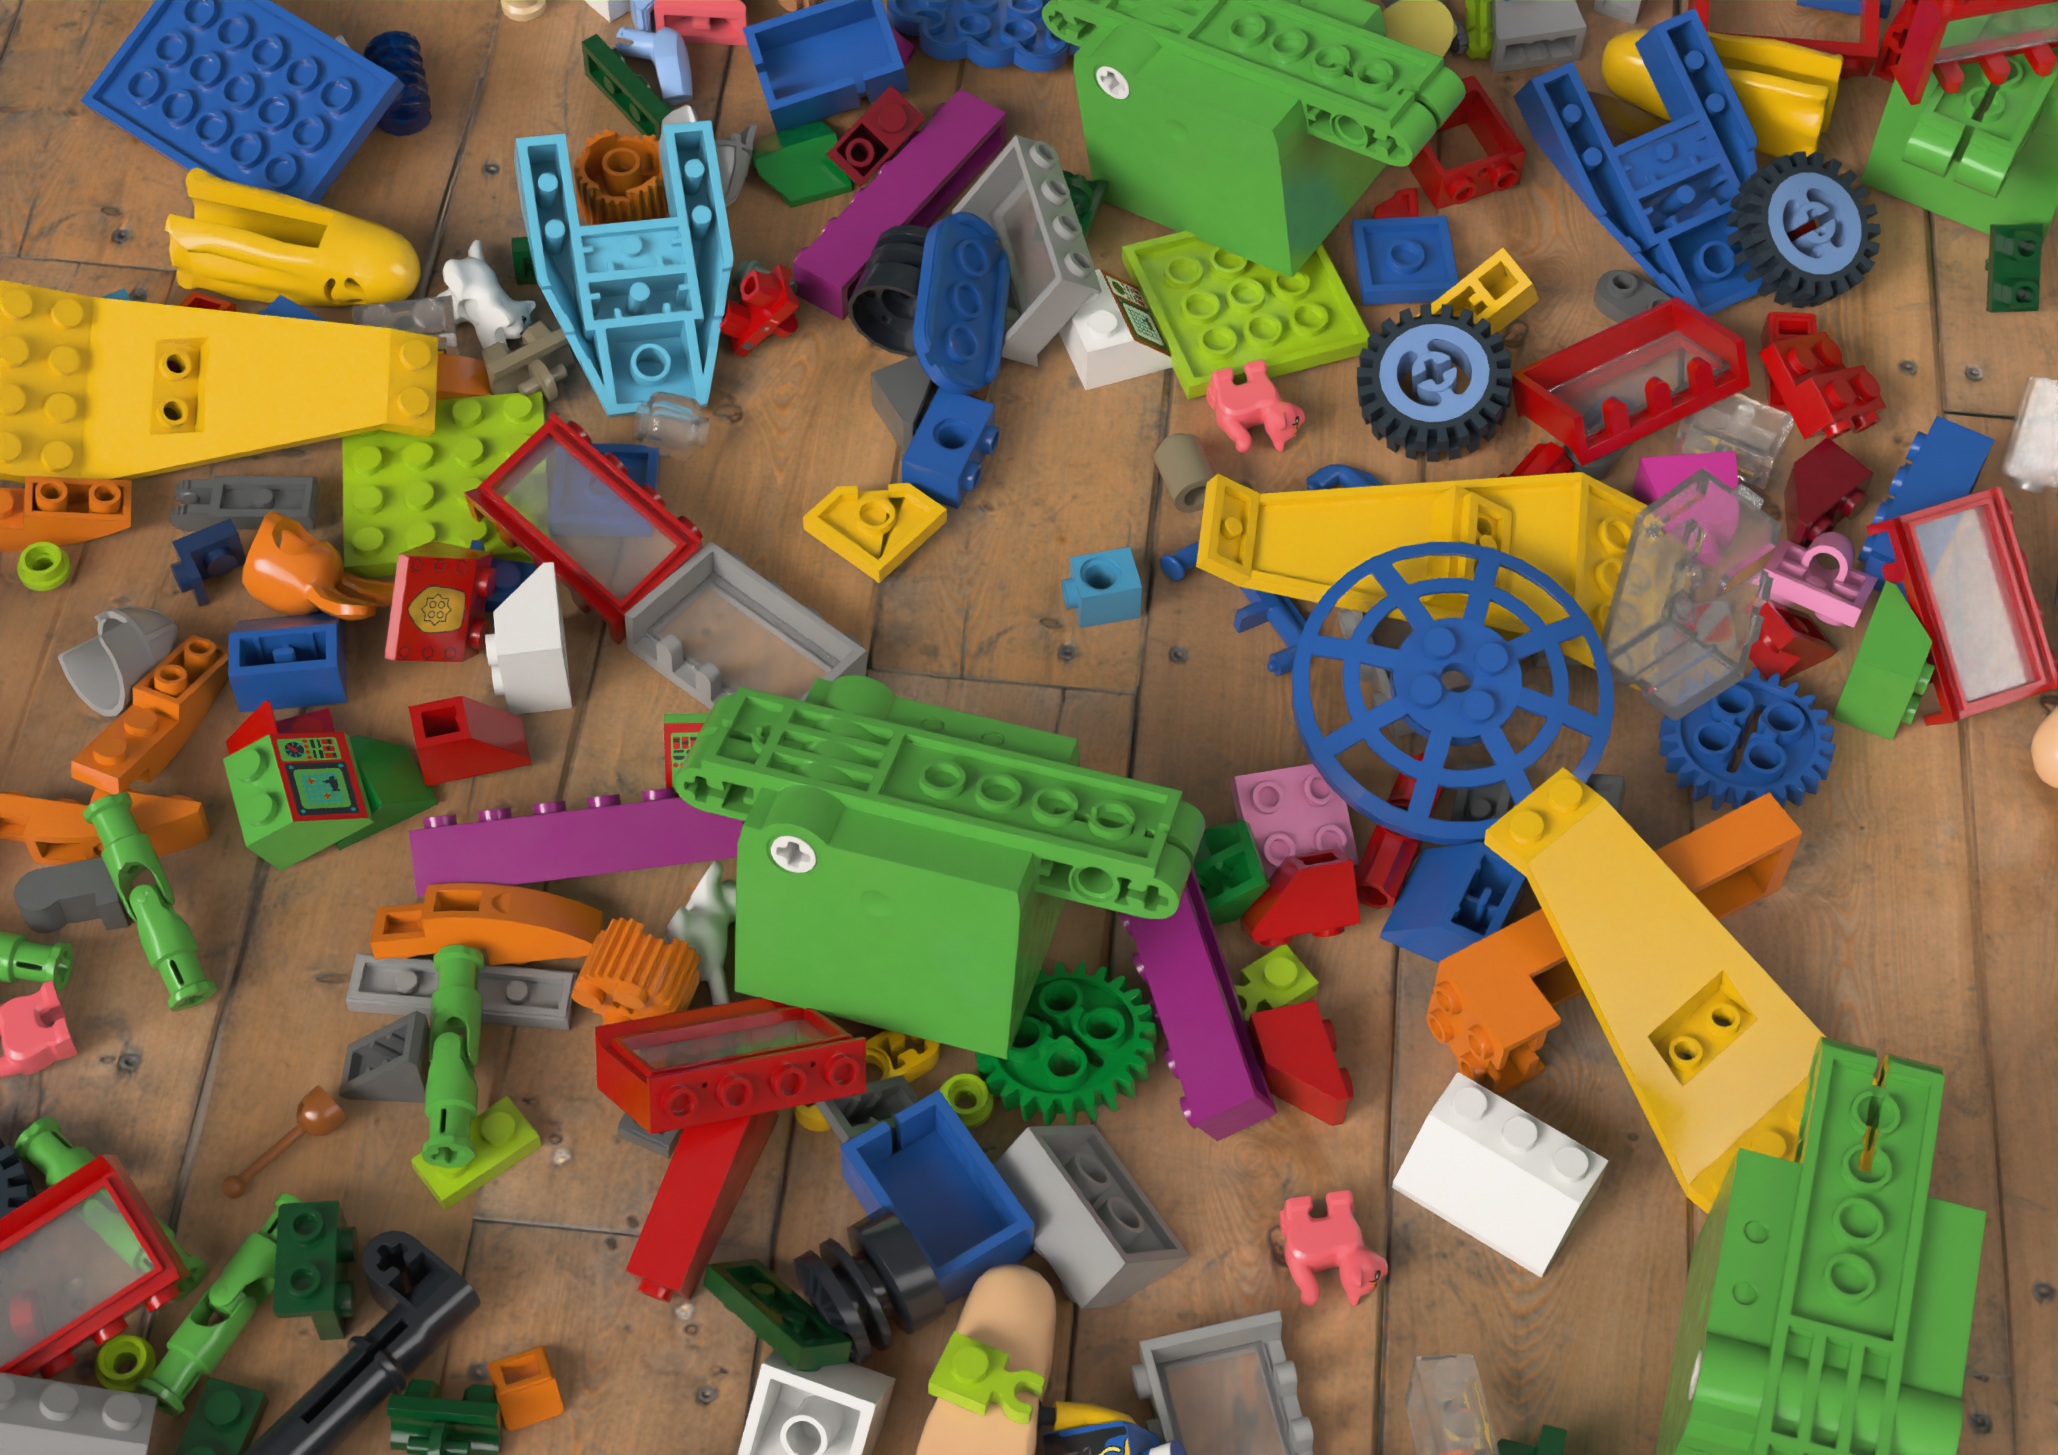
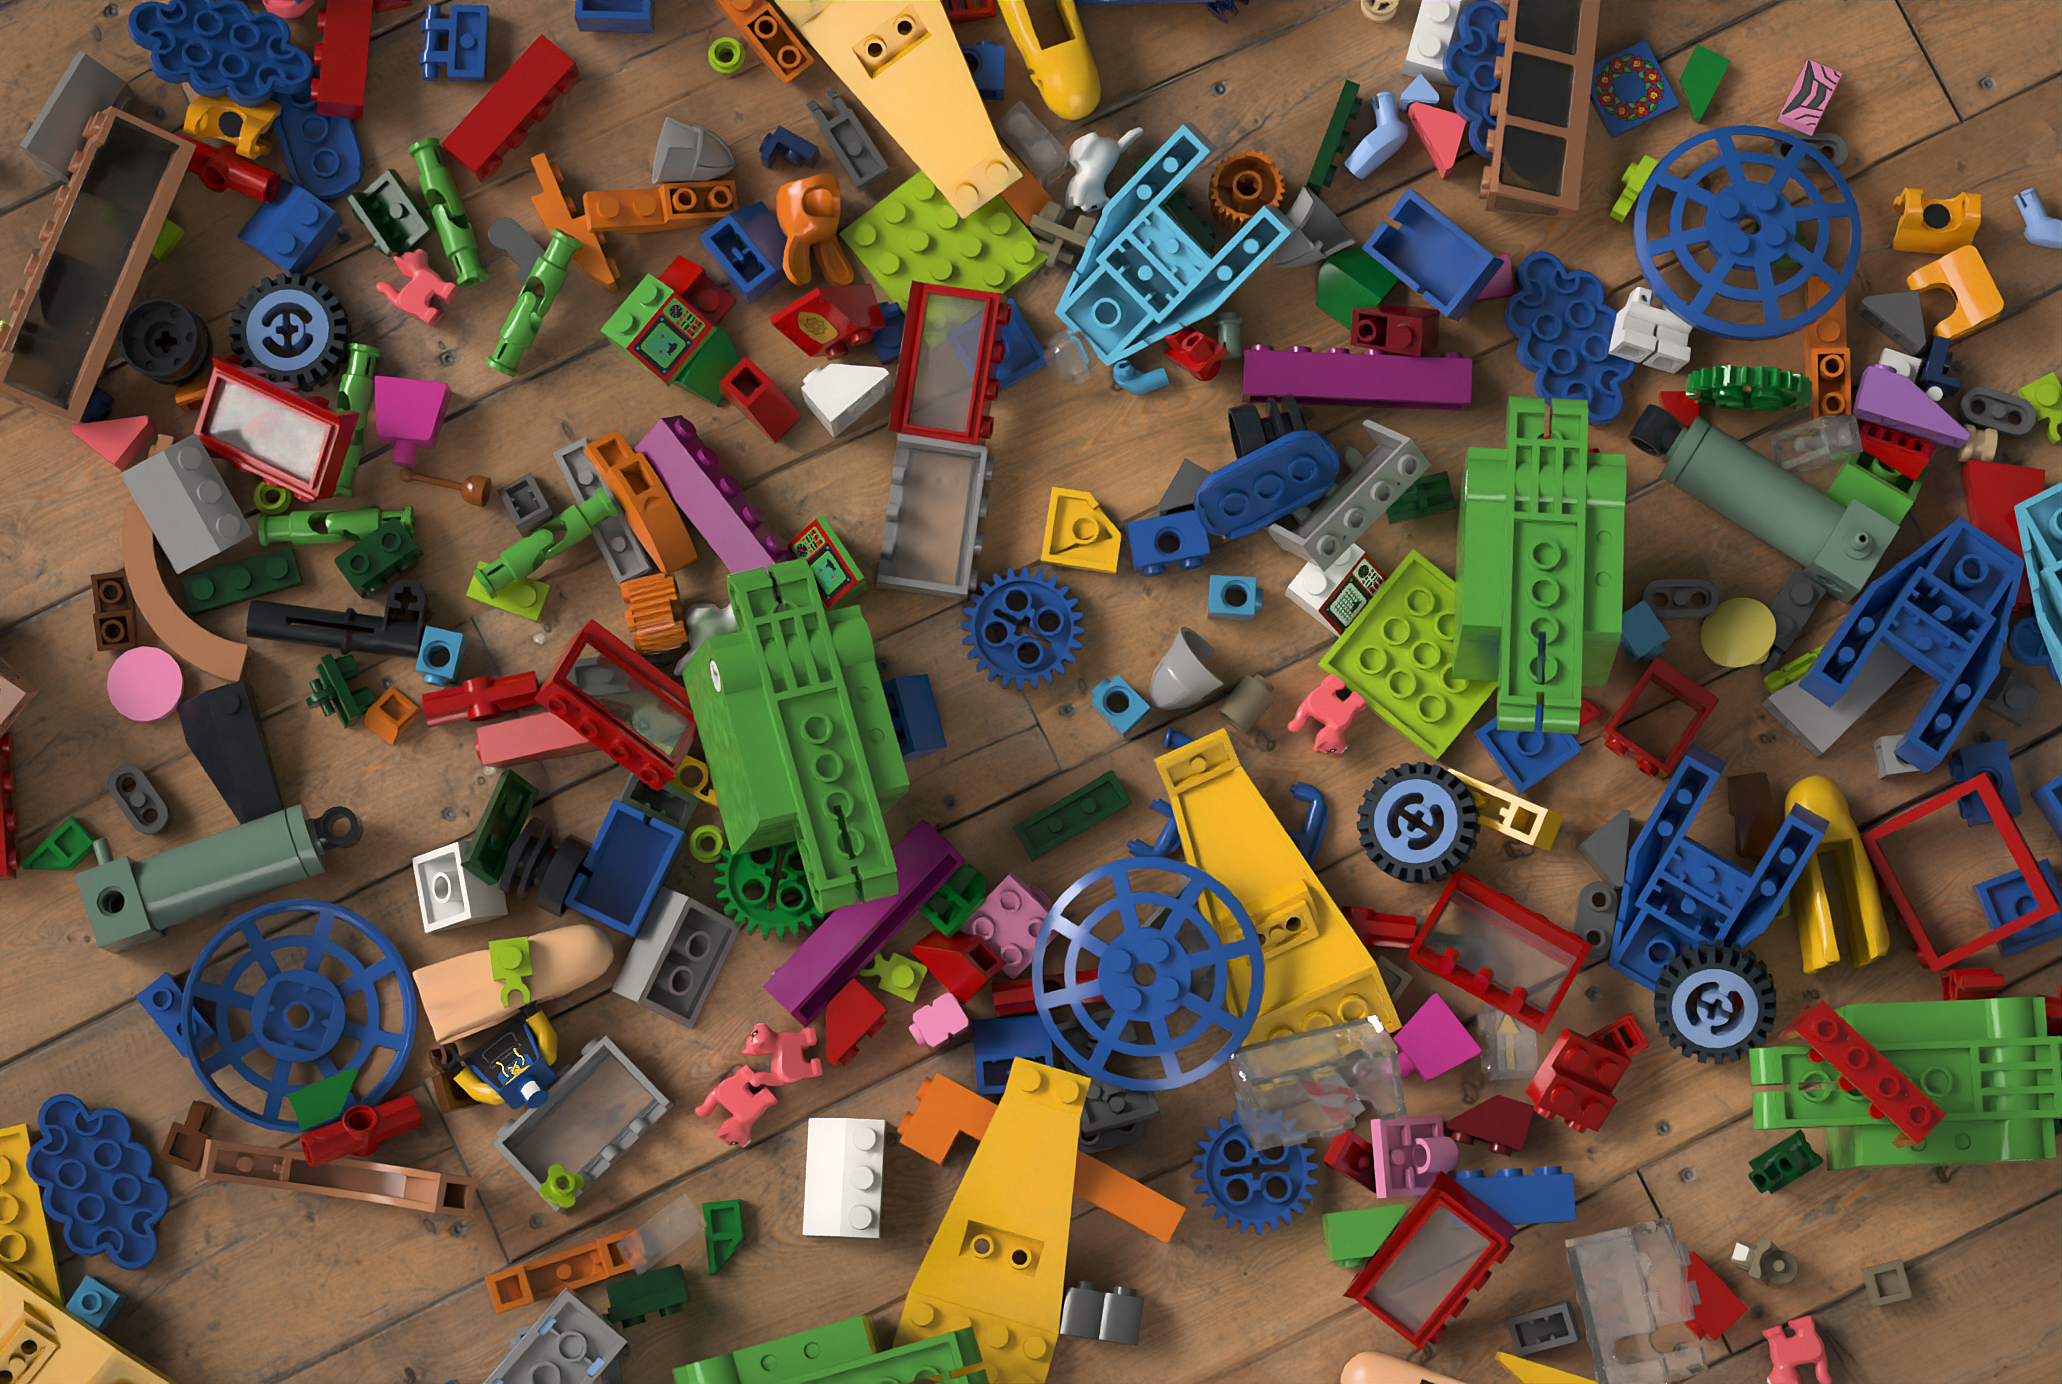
camera: 60 degrees right, 25 degrees up
(161, 1132) = (409, 415): none -> dark pink torso
(494, 1248) = (433, 641): none -> dark azure brick
(589, 1257) = (480, 699): none -> red piece
(736, 395) = (1136, 381): none -> dark azure arm
(944, 632) = (1042, 600): none -> blue gear
(1057, 424) = (1221, 610): none -> dark azure brick
(1115, 495) = (1182, 675): none -> light grey helmet
(1199, 702) = (1072, 815): none -> dark green plate
(1299, 1150) = (786, 1055): none -> coral animal
(1369, 949) = (938, 1023): none -> bright pink brick
(1495, 1363) = (723, 1232): none -> green tile
(1572, 250) = (1608, 849): none -> dark grey slope
(1842, 982) = (1101, 1314): none -> dark grey brick

